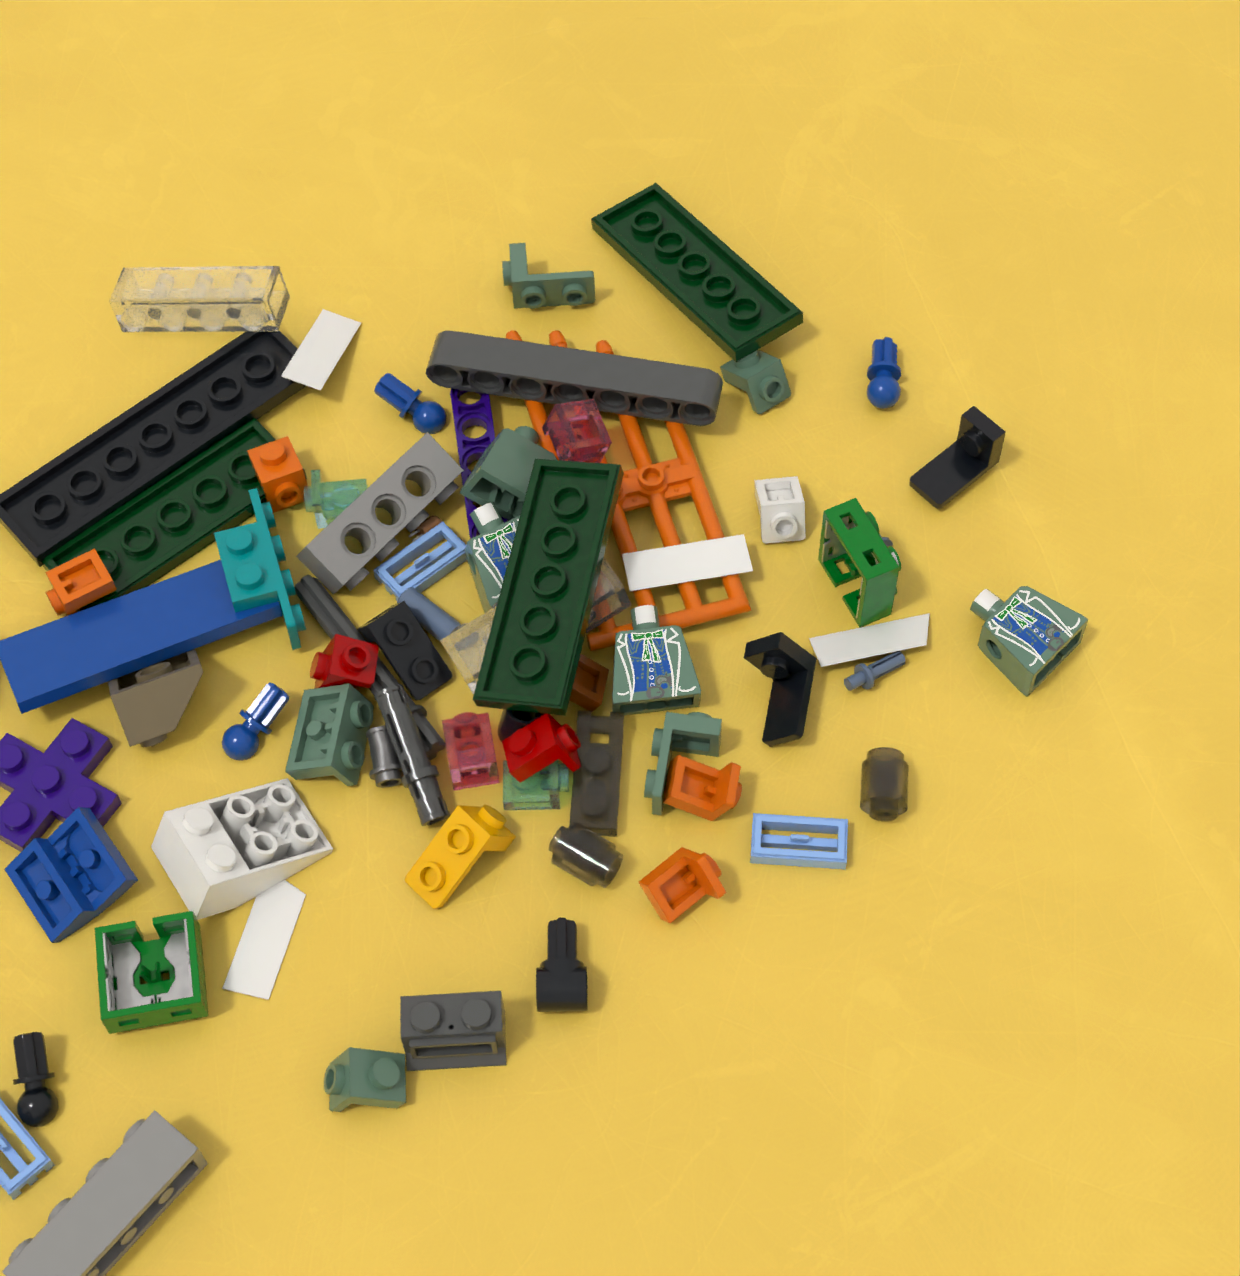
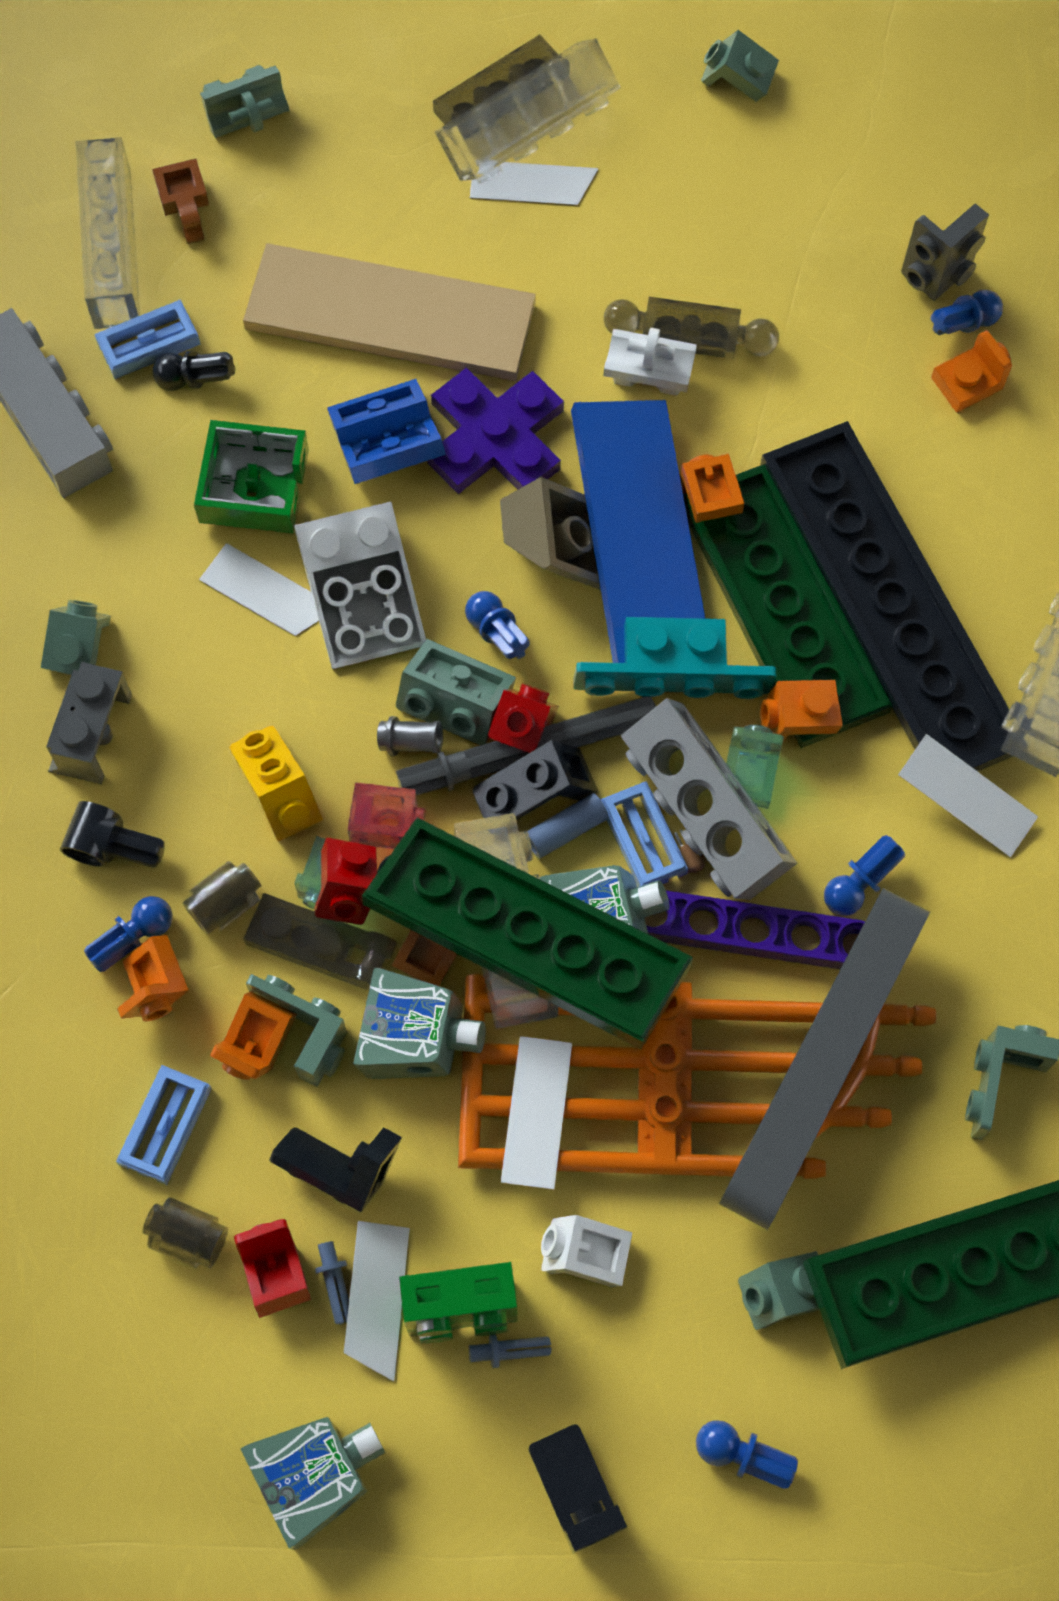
camera: 105 degrees right, 10 degrees up
(415, 764) = (372, 759): dark grey pin -> none
(505, 471) = (721, 948): sand green torso -> none
(577, 431) = (757, 1036): clear pink brick -> none
(624, 912) = (148, 918): none -> blue axle
(886, 710) = (272, 1267): none -> red bracket

